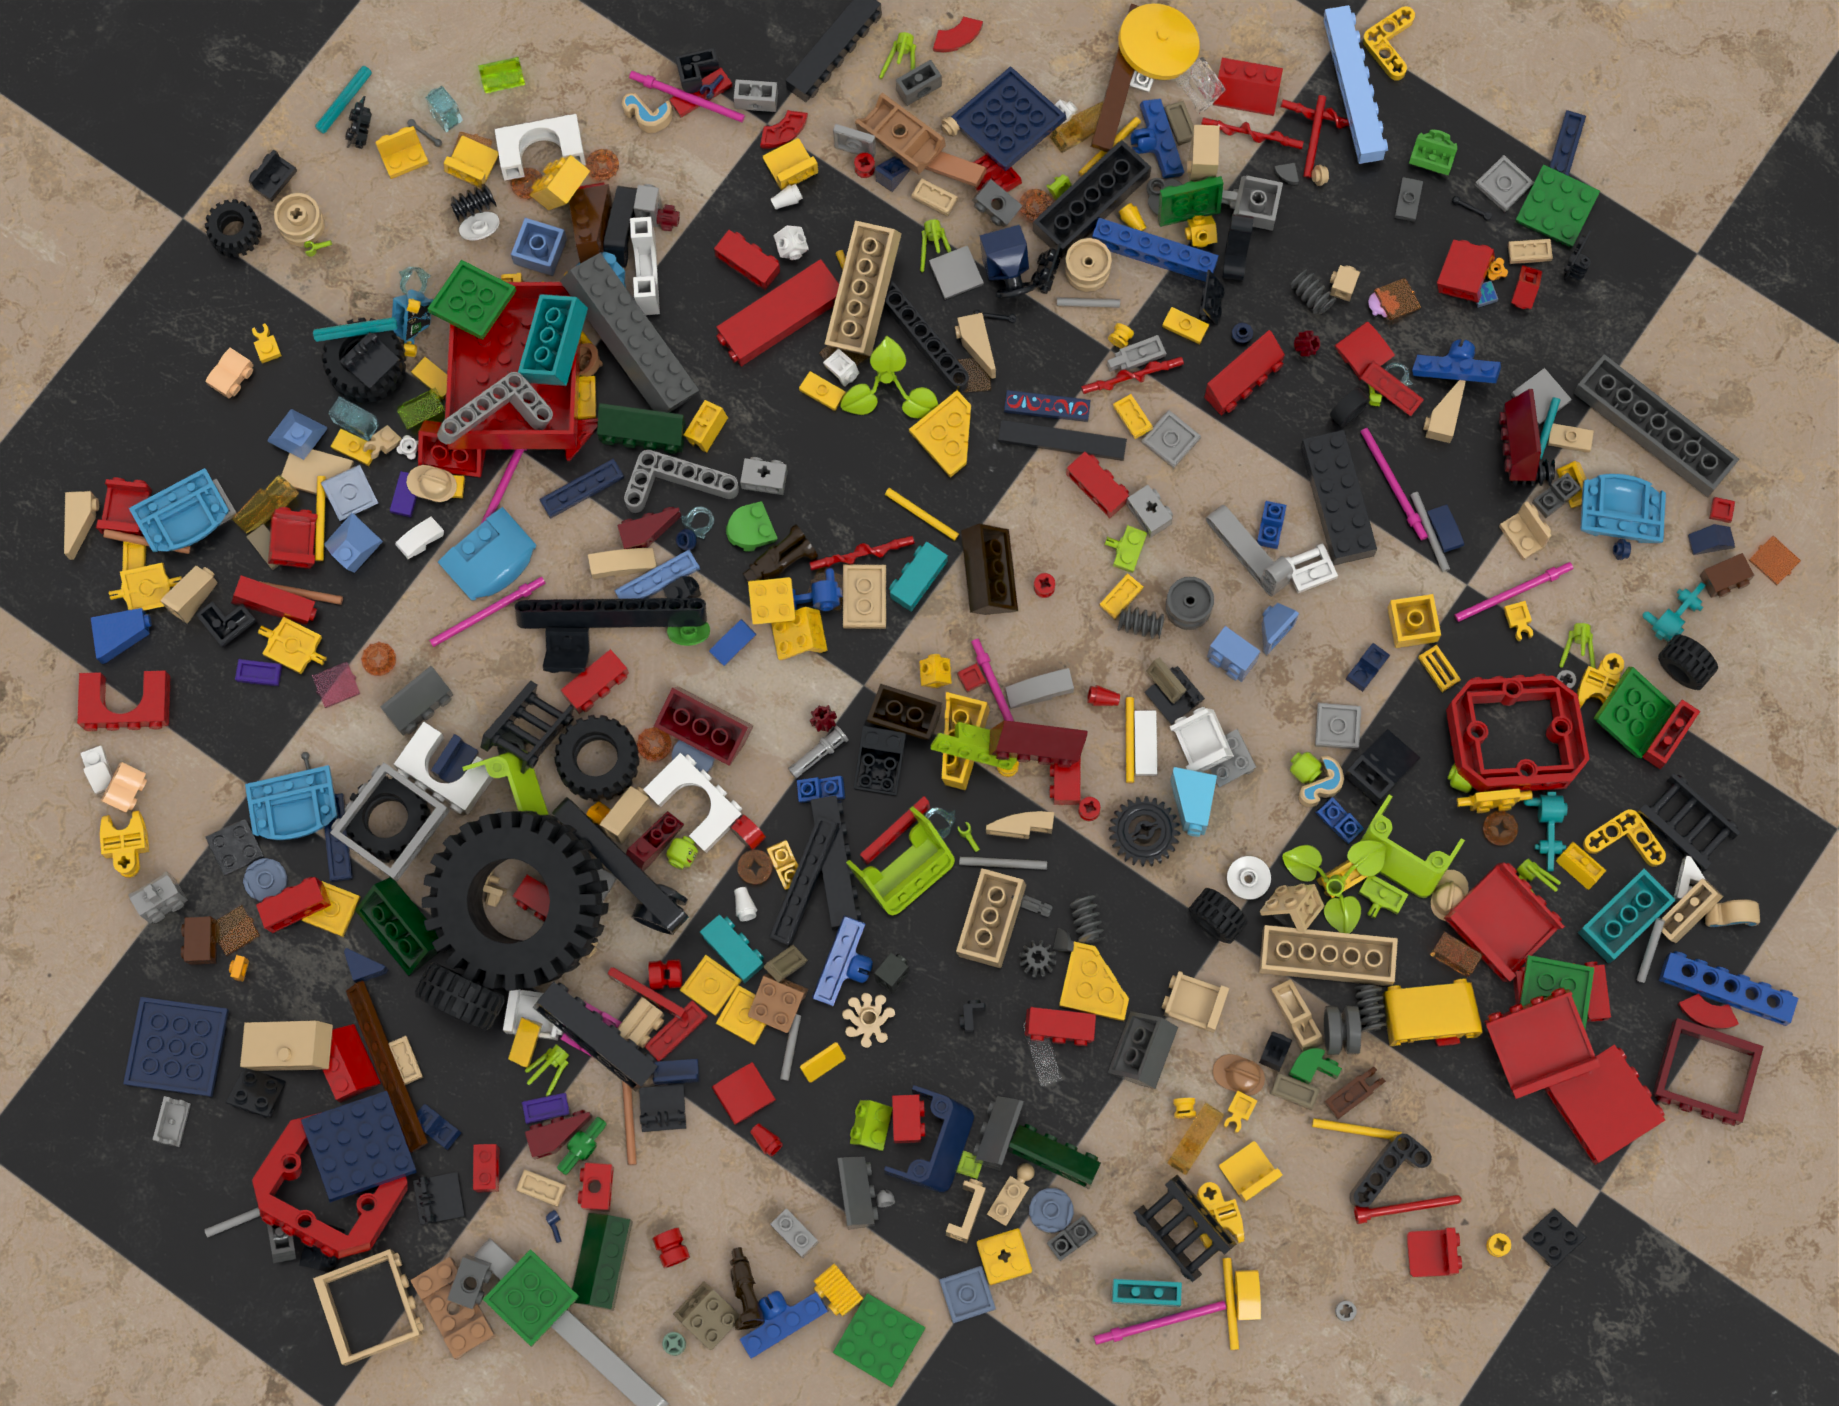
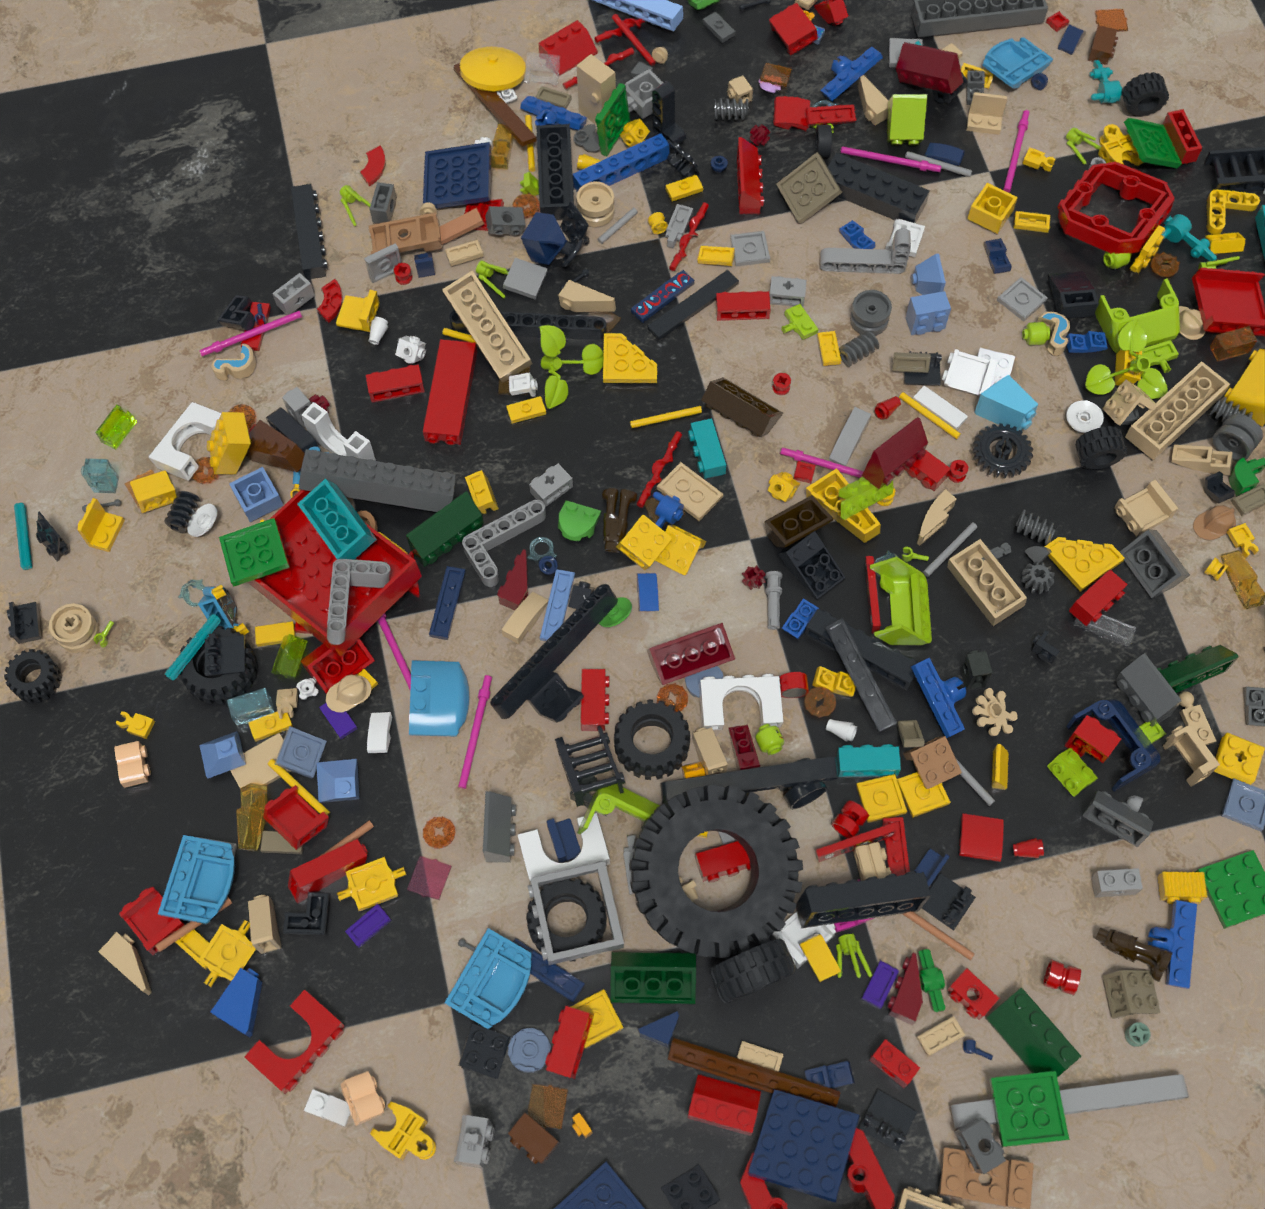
camera: 50 degrees left, 10 degrees down
(286, 1045) = (679, 1136): tan brick -> none
(1051, 1210) = (1224, 705): sand blue tile -> none
(1280, 438) = (809, 188): none -> dark tan plate
(1443, 462) = (906, 118): none -> lime slope

